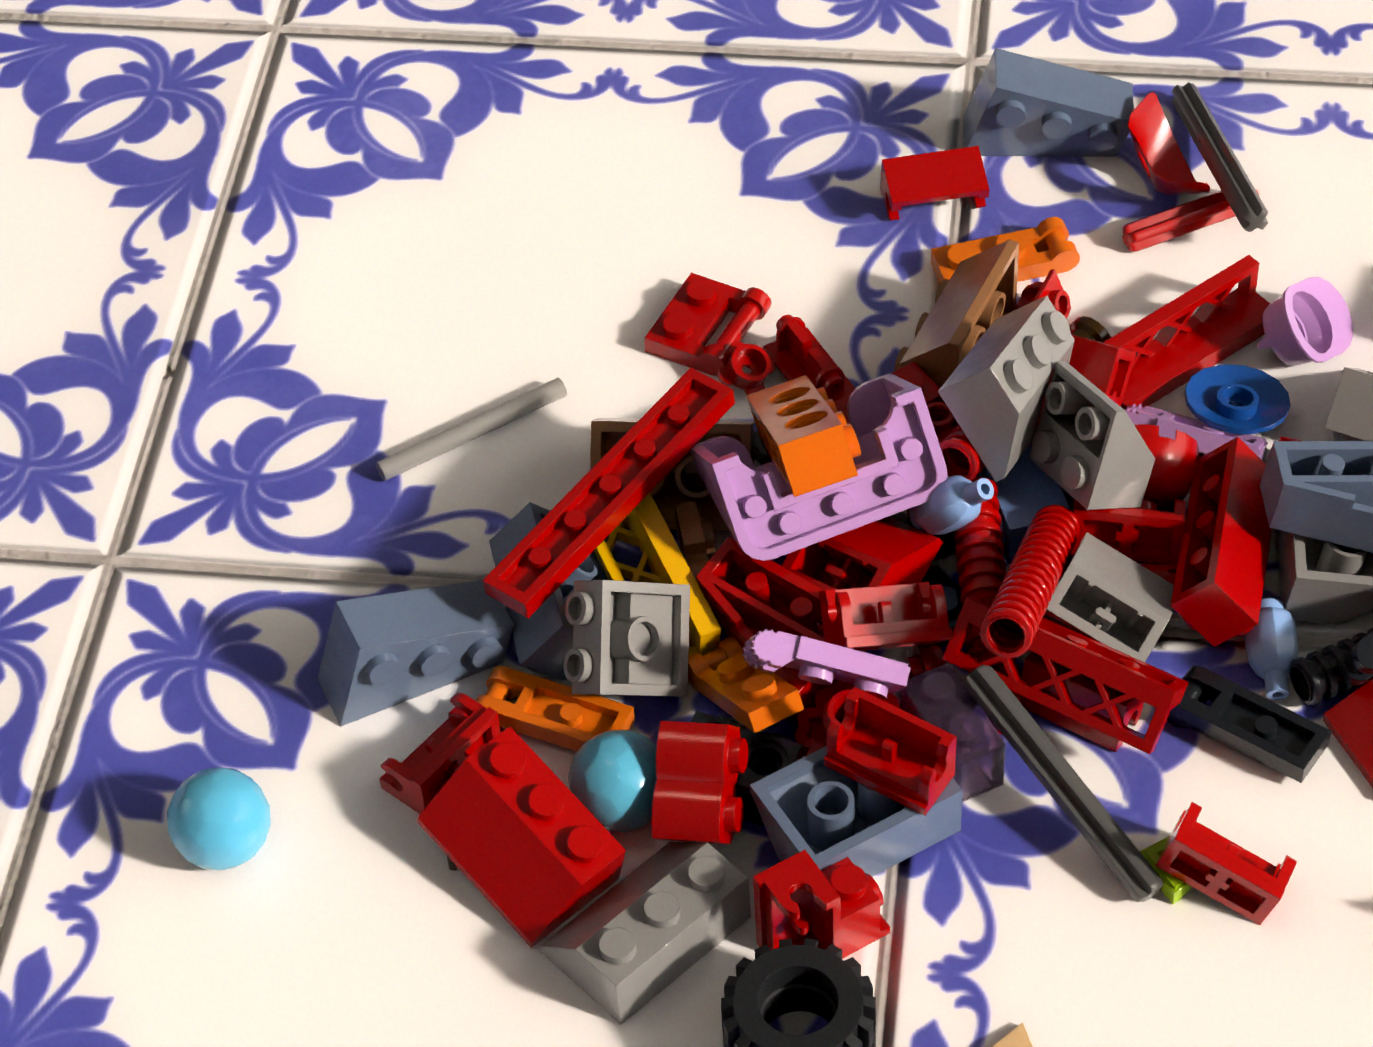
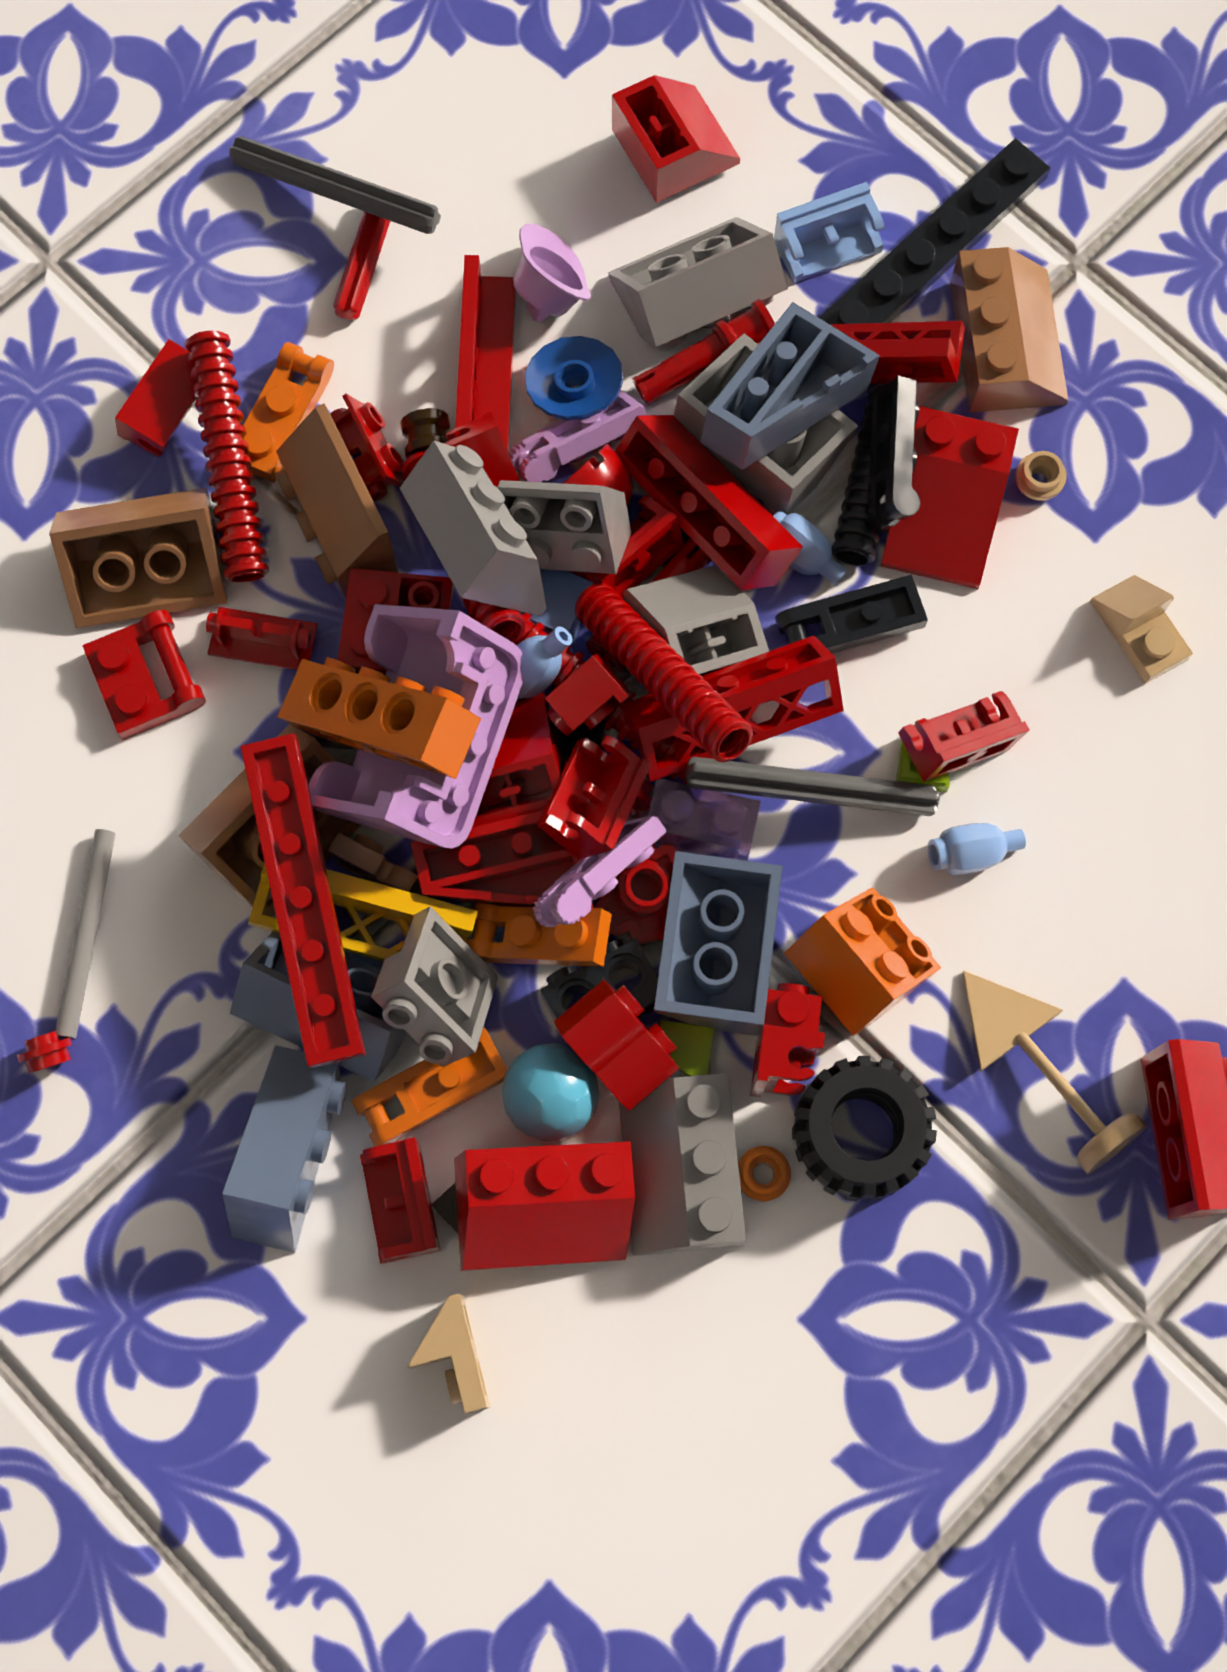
camera: 55 degrees left, 25 degrees up
(218, 818) = (328, 1424): medium azure piece -> none
(351, 867) = (453, 1338): none -> tan slope
(356, 463) = (45, 1052): none -> red plate
(691, 975) = (779, 1166): none -> orange plate
(747, 356) = (231, 674): red plate -> none
(753, 854) = (692, 1045): none -> lime tile
(794, 254) = (139, 557): none -> medium nougat slope
(891, 751) = (724, 894): red hinge -> none
(924, 241) = (227, 456): none -> red piece
(951, 928) = (862, 959): none -> orange slope
(963, 555) = (586, 696): none -> red brick
(1046, 110) = (170, 260): sand blue wedge -> none
(1138, 947) = (972, 847): none -> light blue plant
(1160, 152) = (293, 222): red piece -> none

